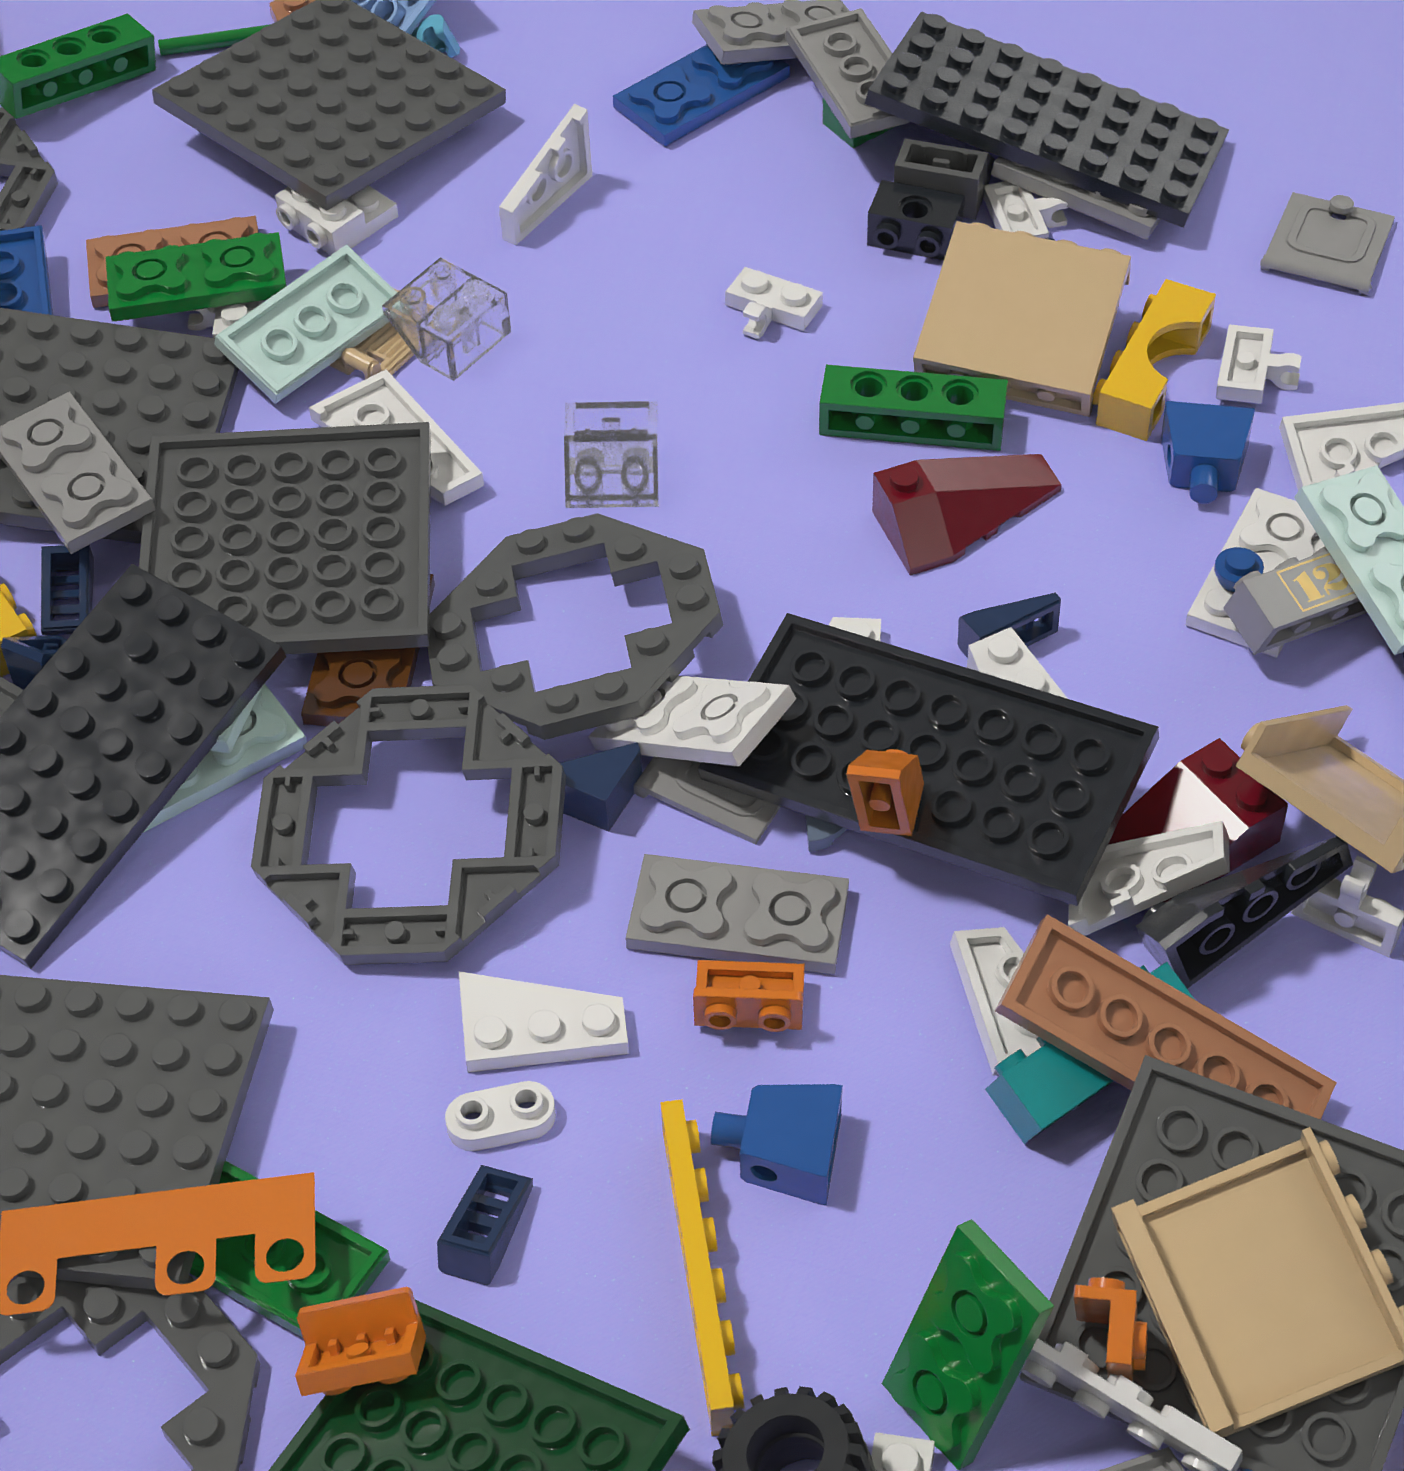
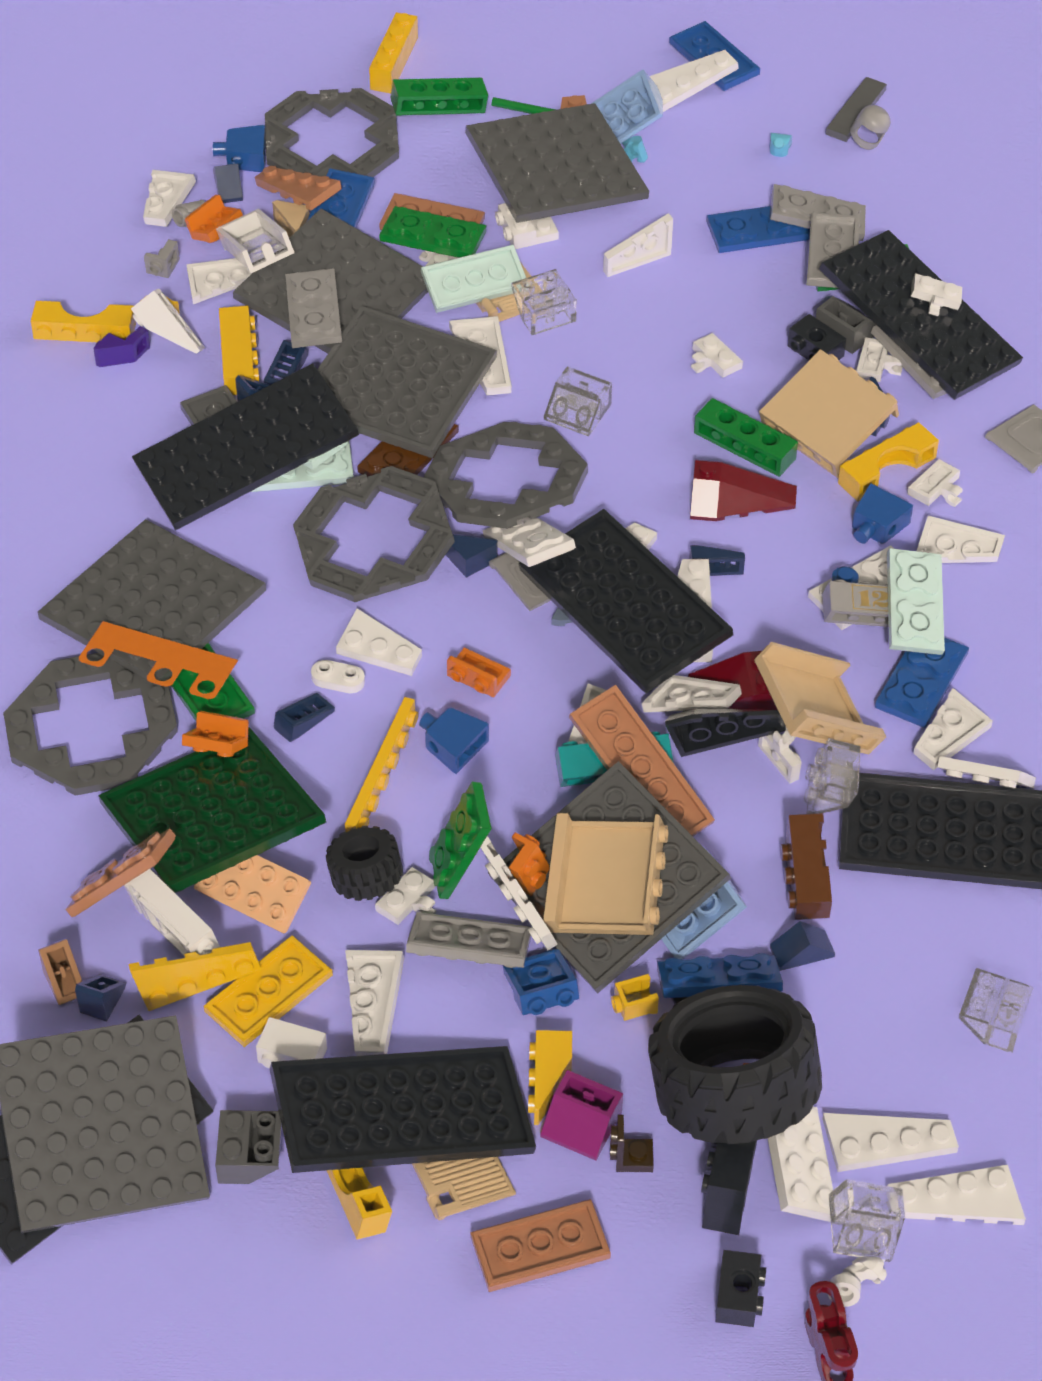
camera: 25 degrees right, 0 degrees up
(737, 913) = (499, 636): light grey piece -> none
(886, 790) = (587, 604): orange slope -> none
(1059, 74) = (936, 292): none -> white plate

